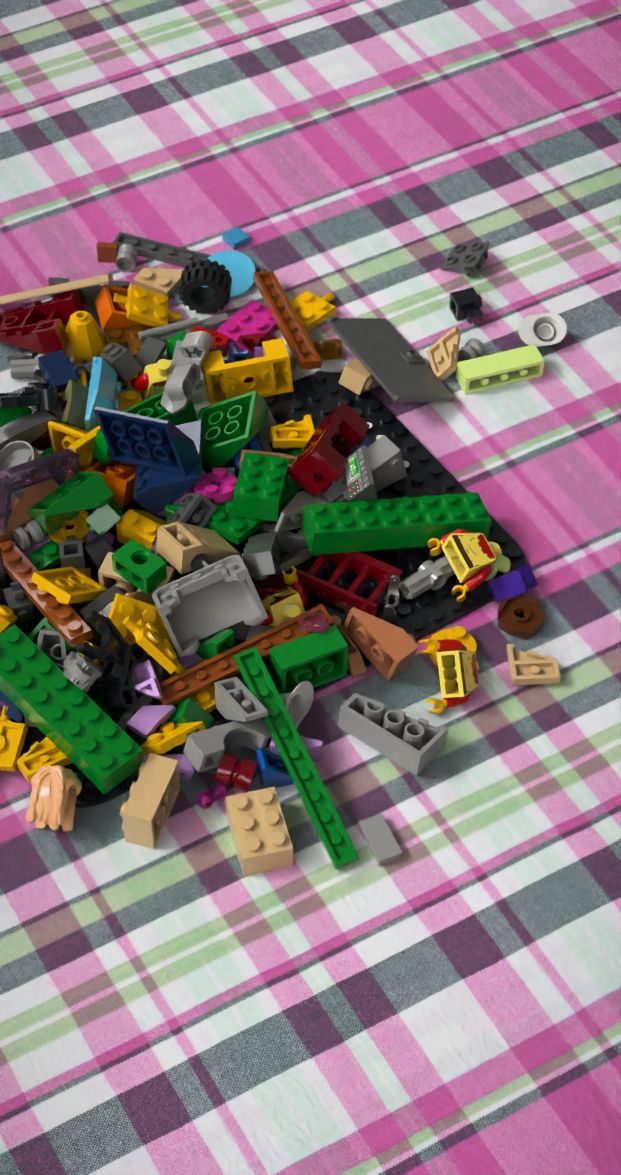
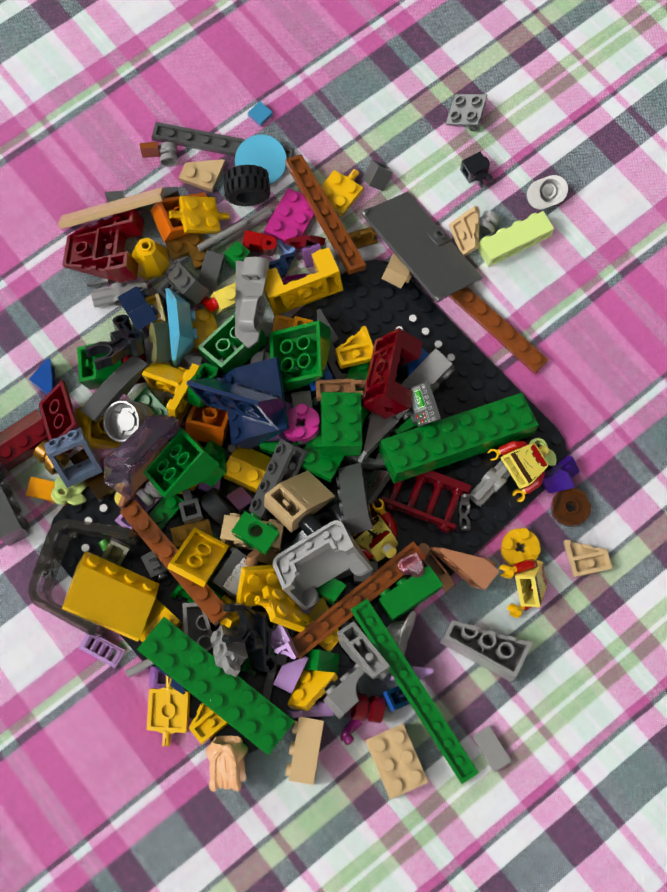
camera: 10 degrees left, 25 degrees up
(354, 299) = (377, 175): none -> dark grey panel
(464, 445) = (500, 329): none -> dark orange plate

